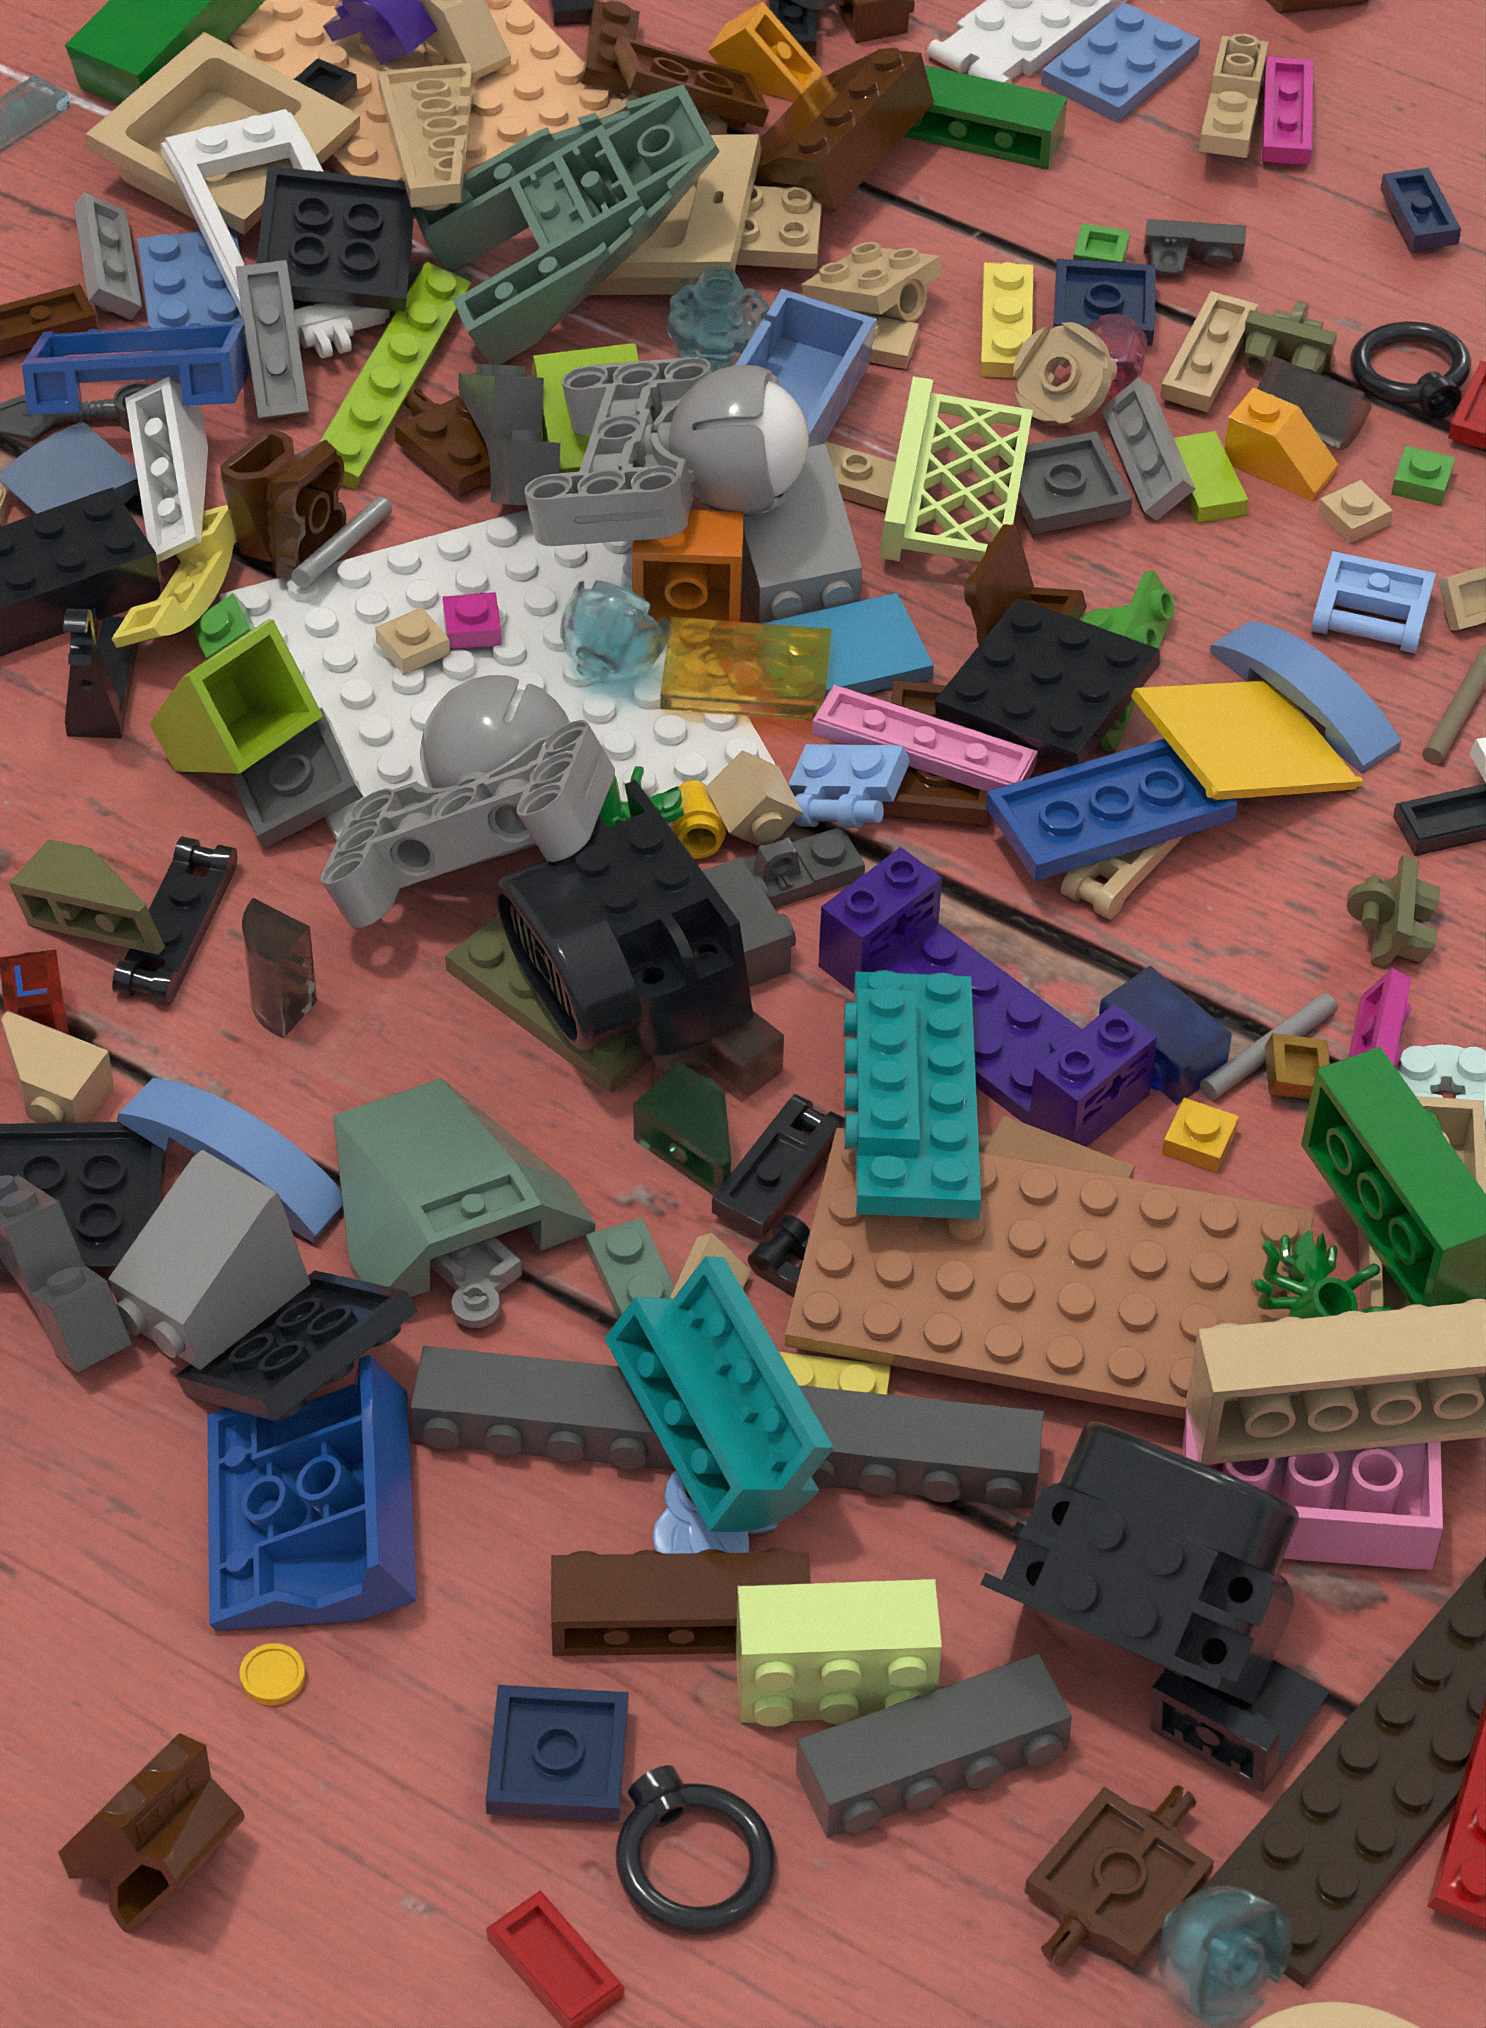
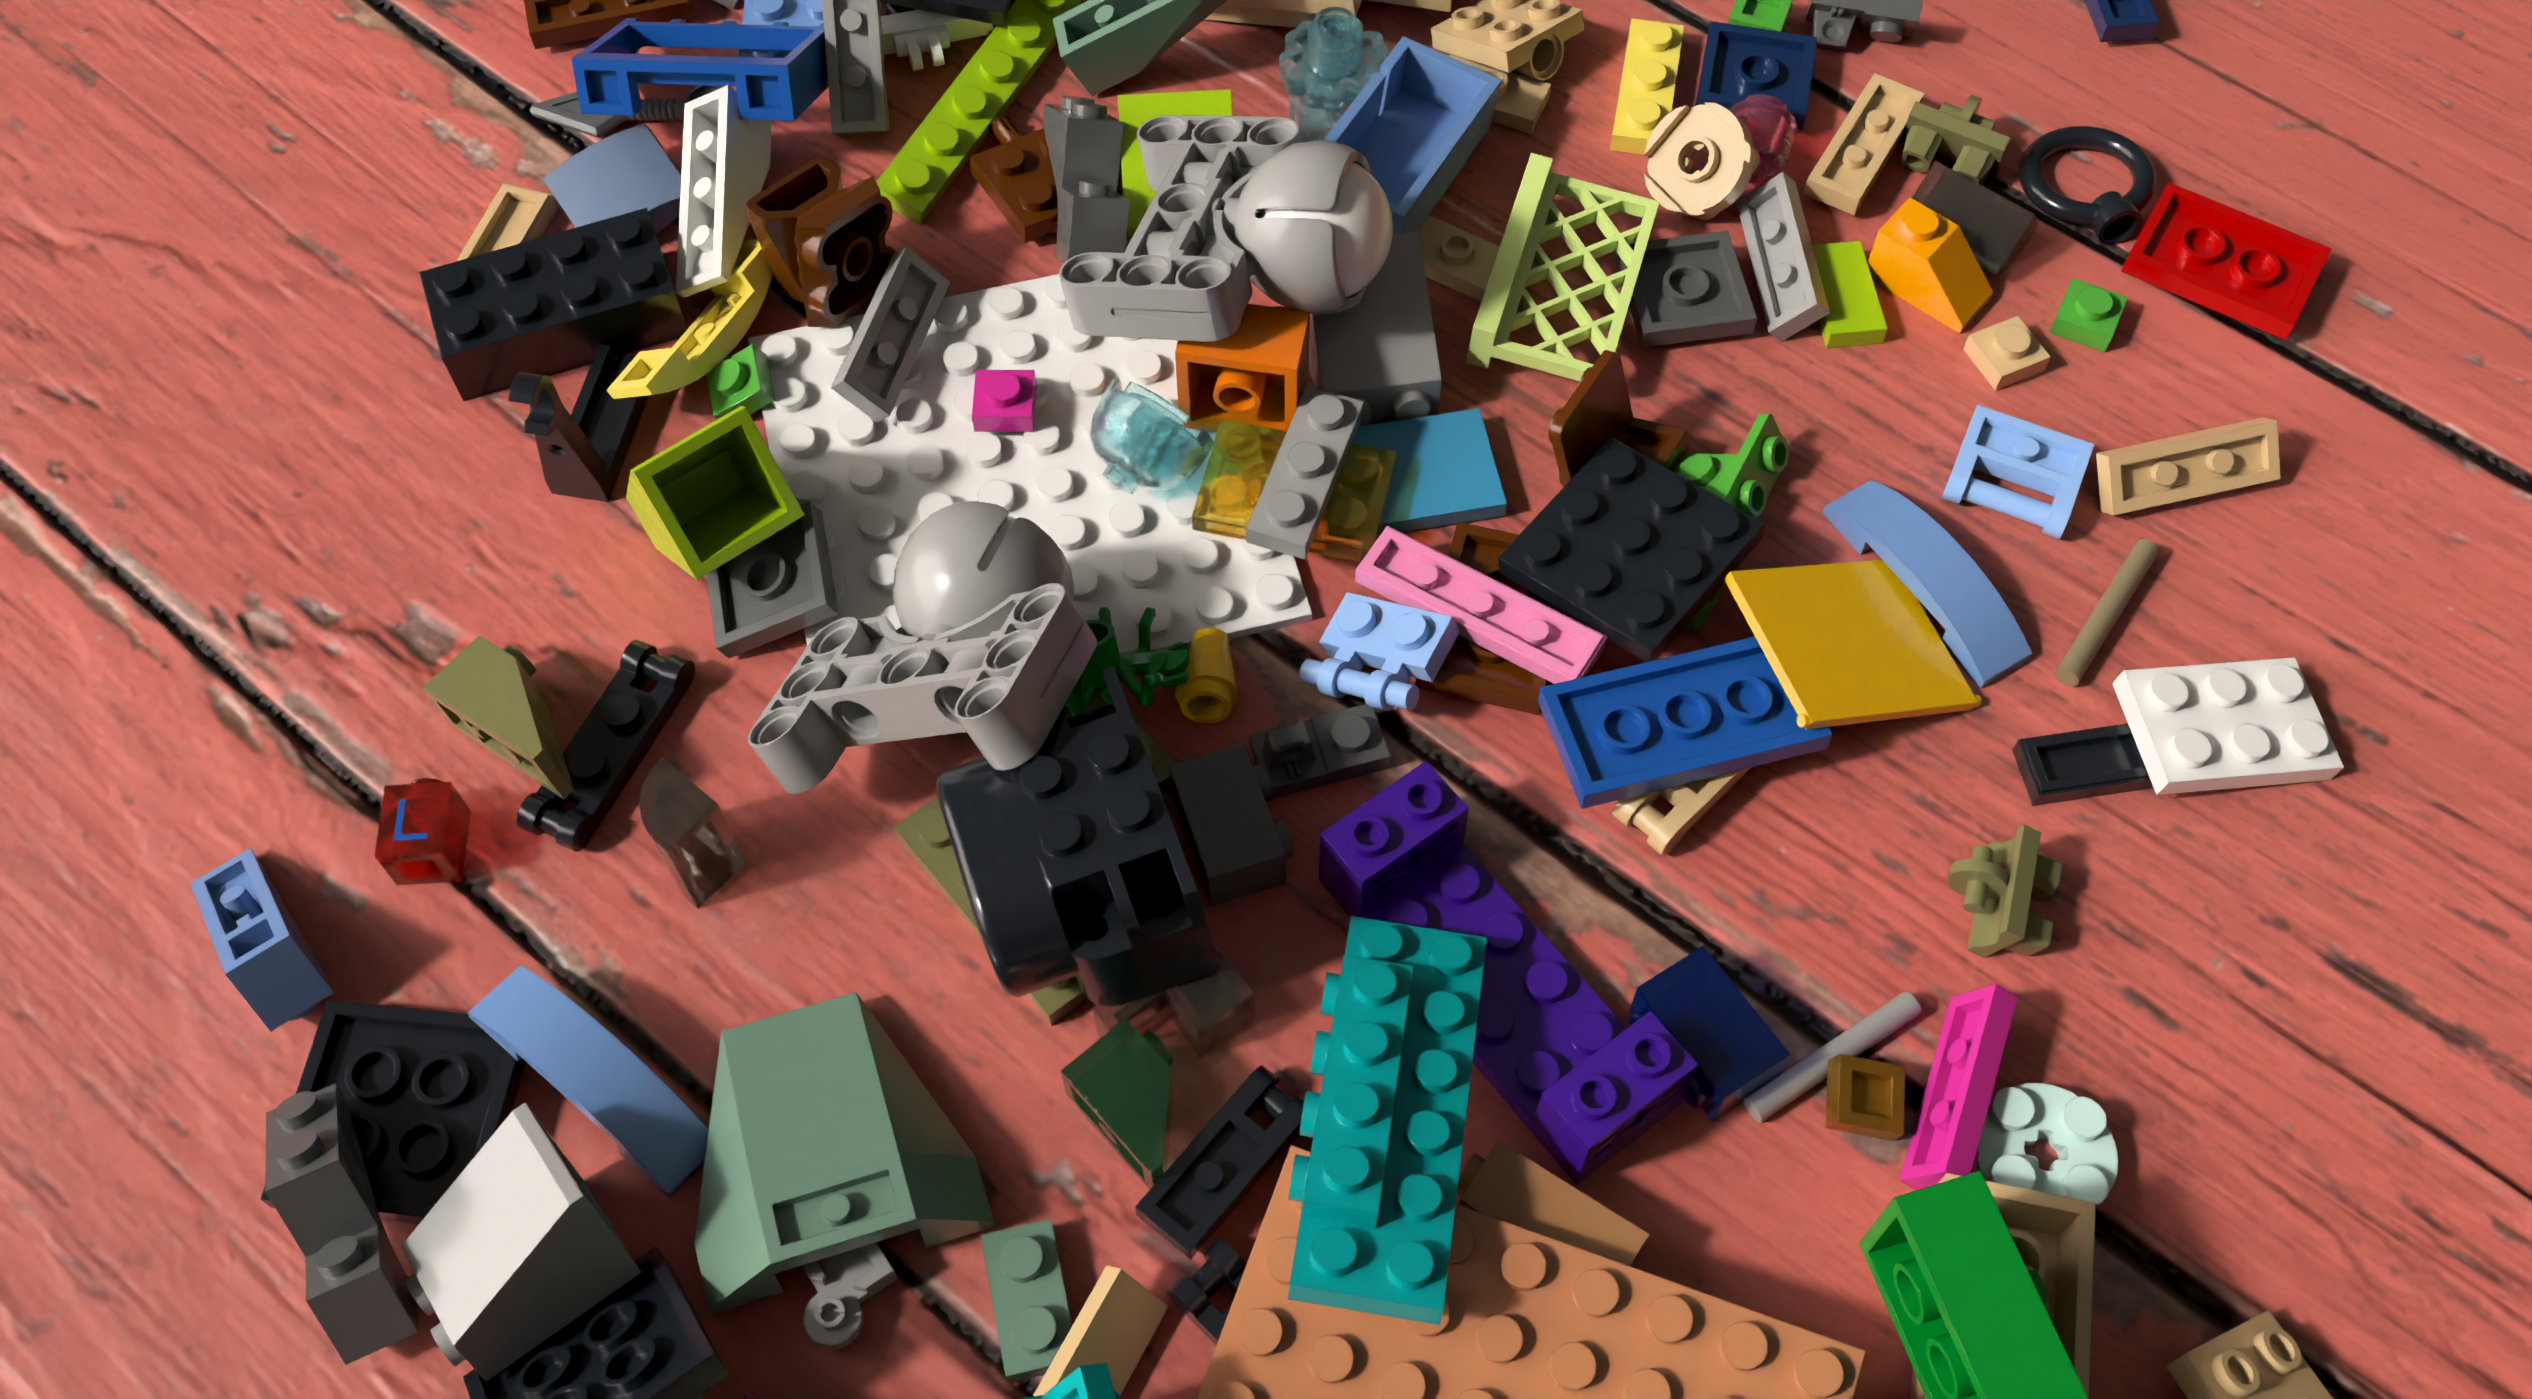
camera: 10 degrees right, 10 degrees up
(56, 1073) = (420, 941): tan slope -> none
(341, 542) = (852, 314): light grey bar -> none
(359, 574) = (890, 335): none -> light grey plate
(412, 640) = (935, 419): tan plate -> none
(754, 799) = (1274, 663): tan brick -> none
(756, 647) = (1305, 472): none -> light grey plate
(1200, 1135) = (1736, 1174): yellow plate -> none

